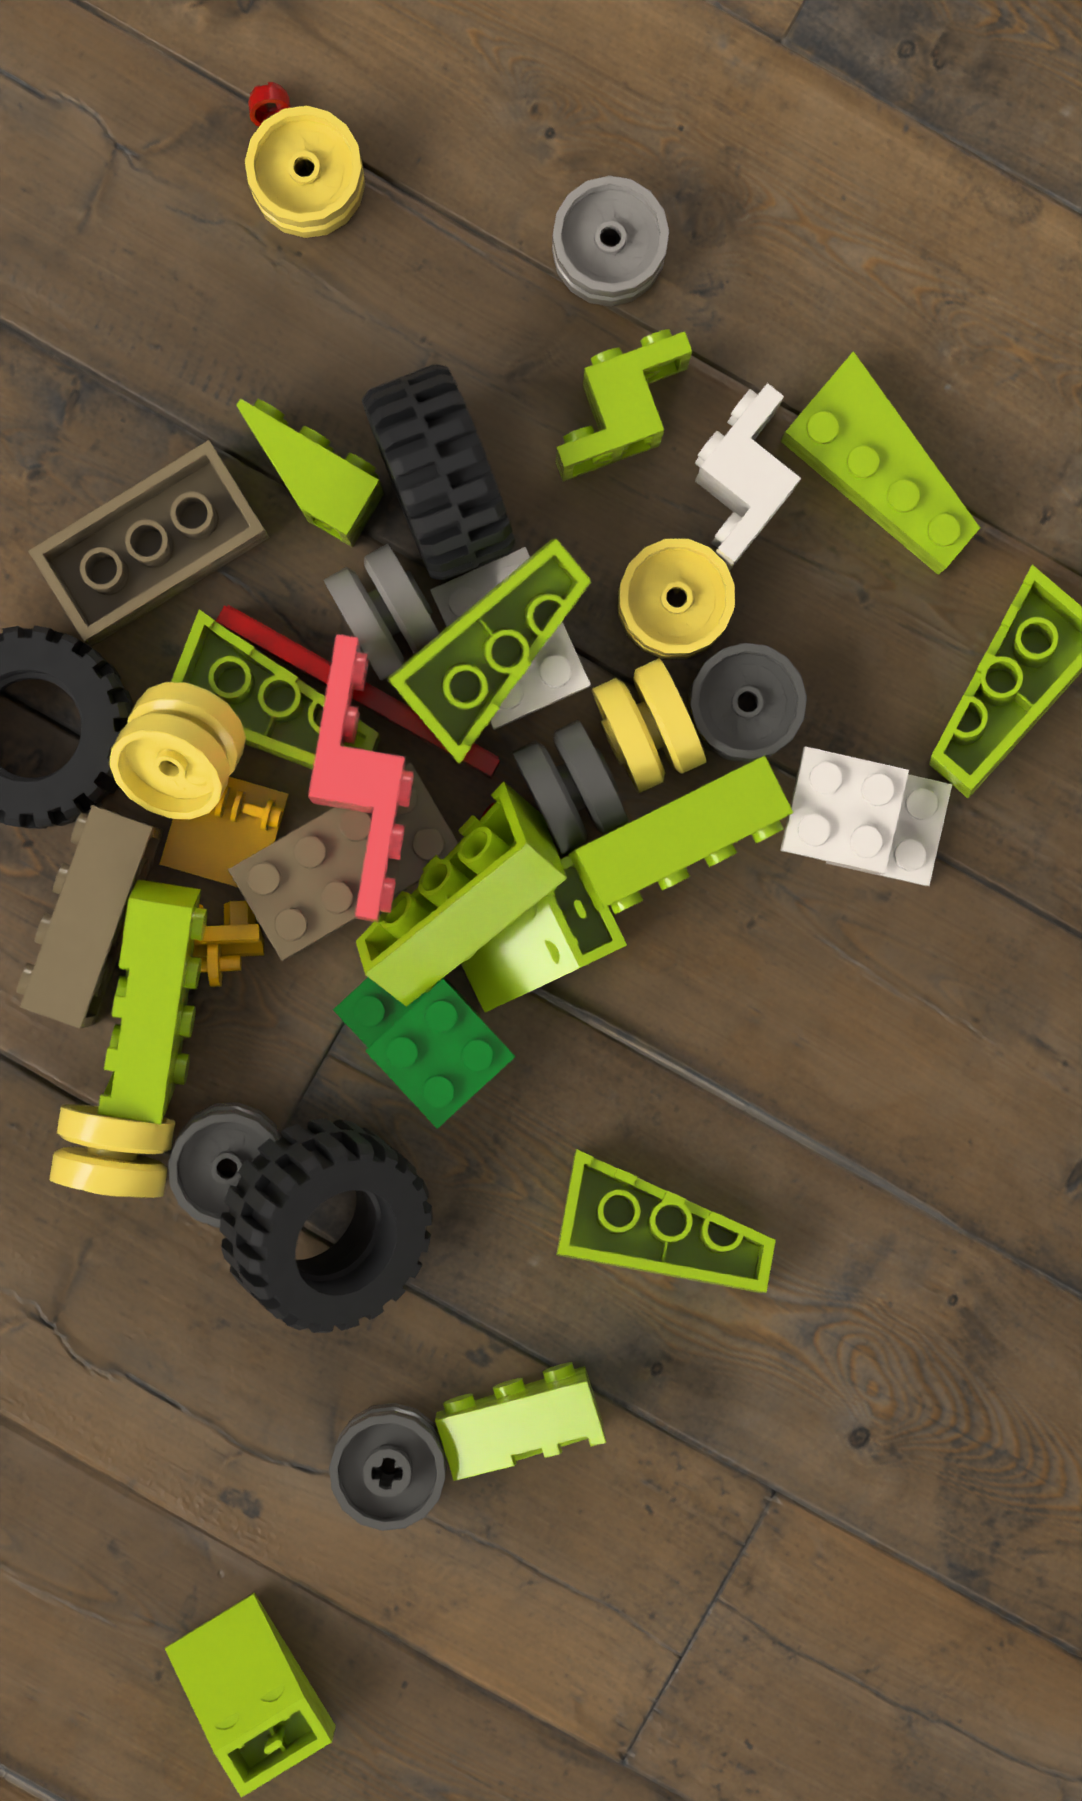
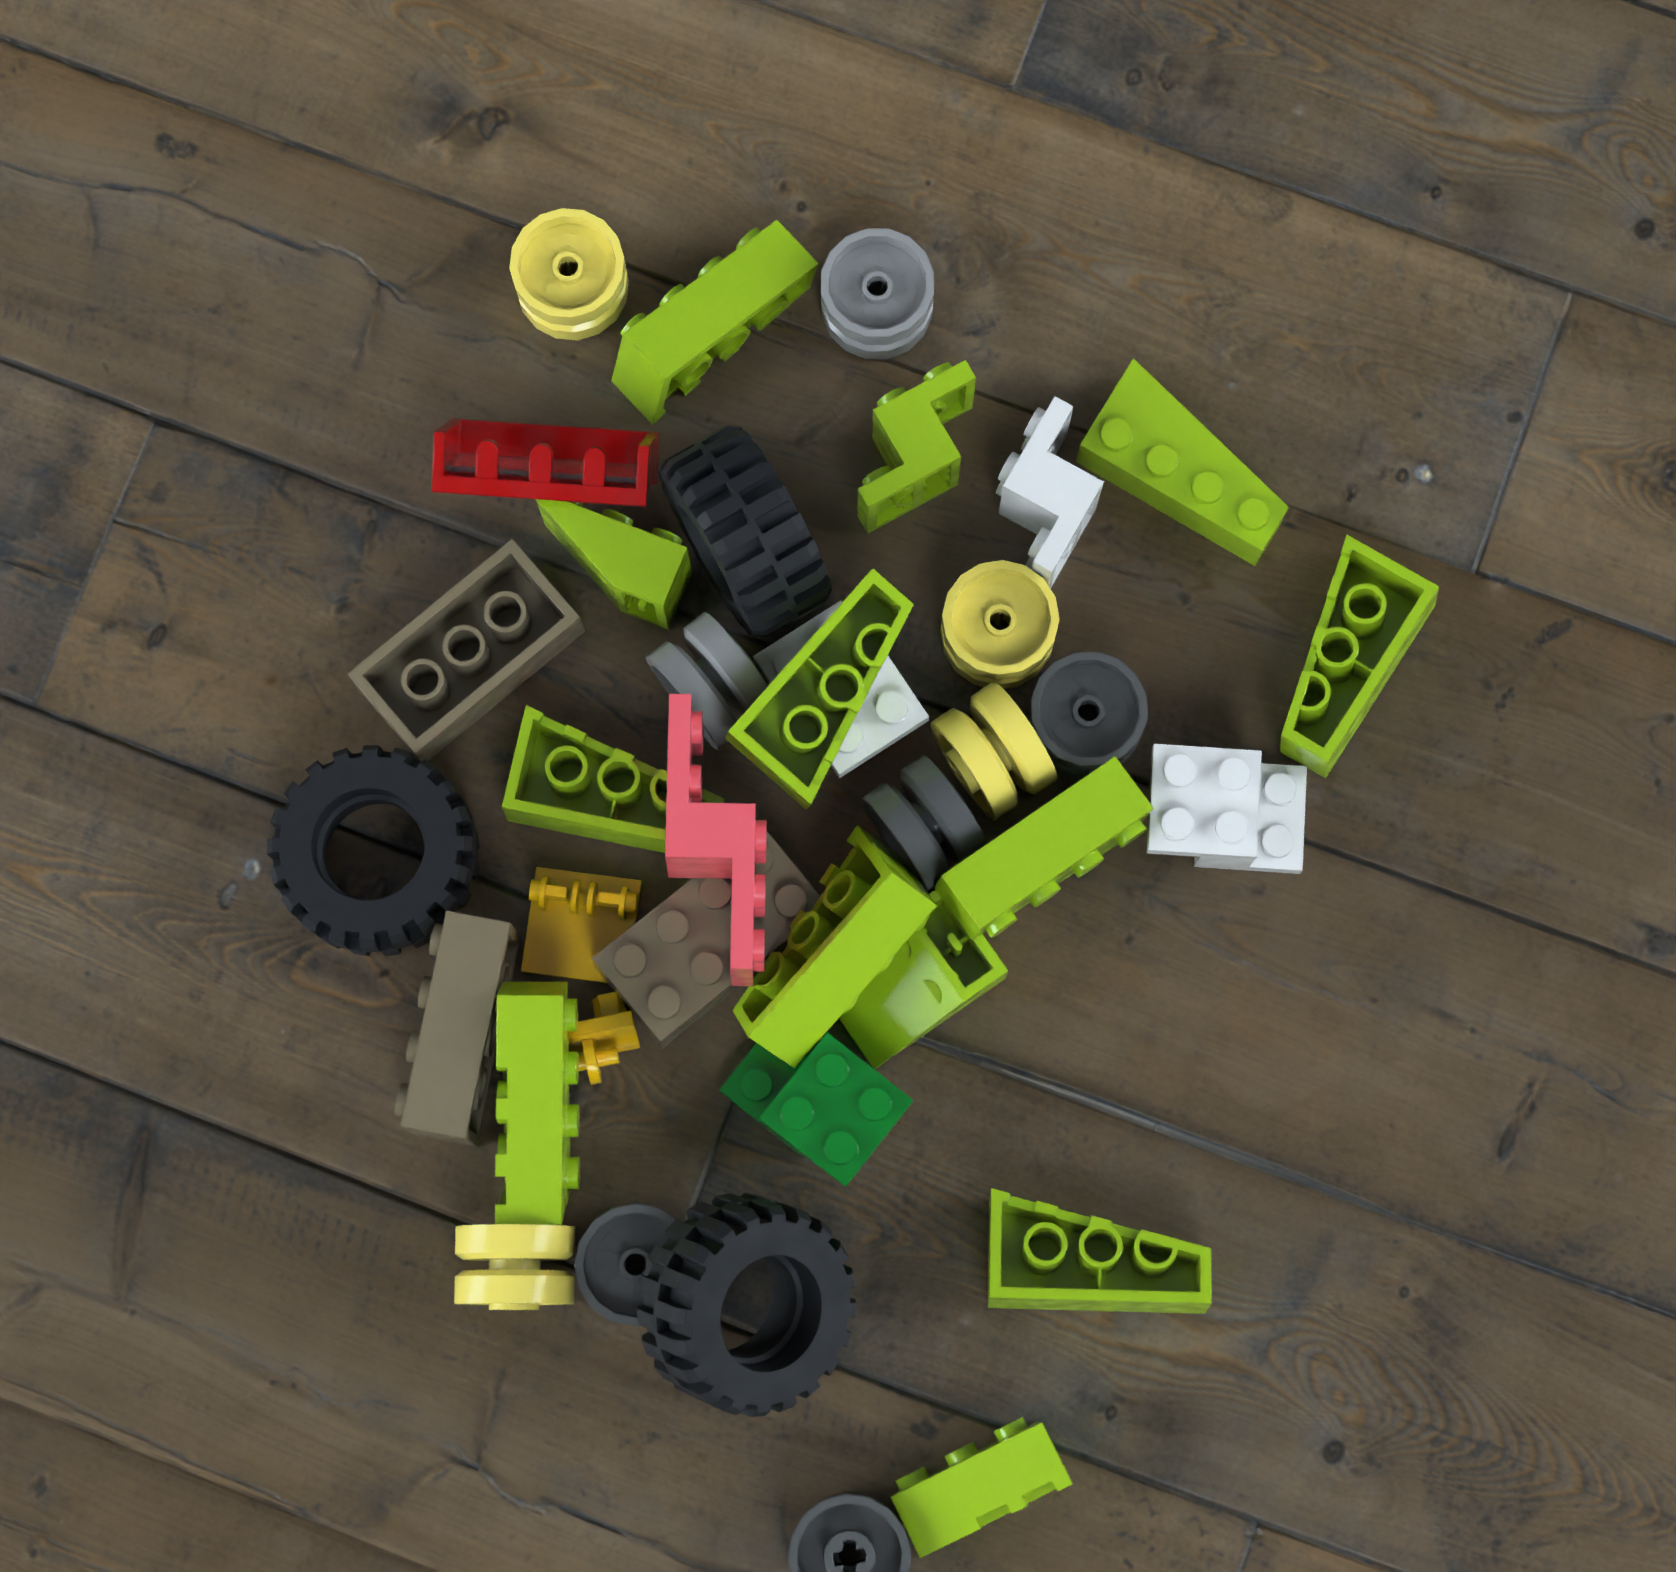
camera: 10 degrees left, 10 degrees down
(177, 750) = (525, 843): light yellow wheel -> none
(252, 366) = (545, 462): none -> red window
(267, 94) = (516, 210): red hinge -> none
(370, 698) = (715, 772): red tile -> none
(441, 237) = (710, 317): none -> lime wedge

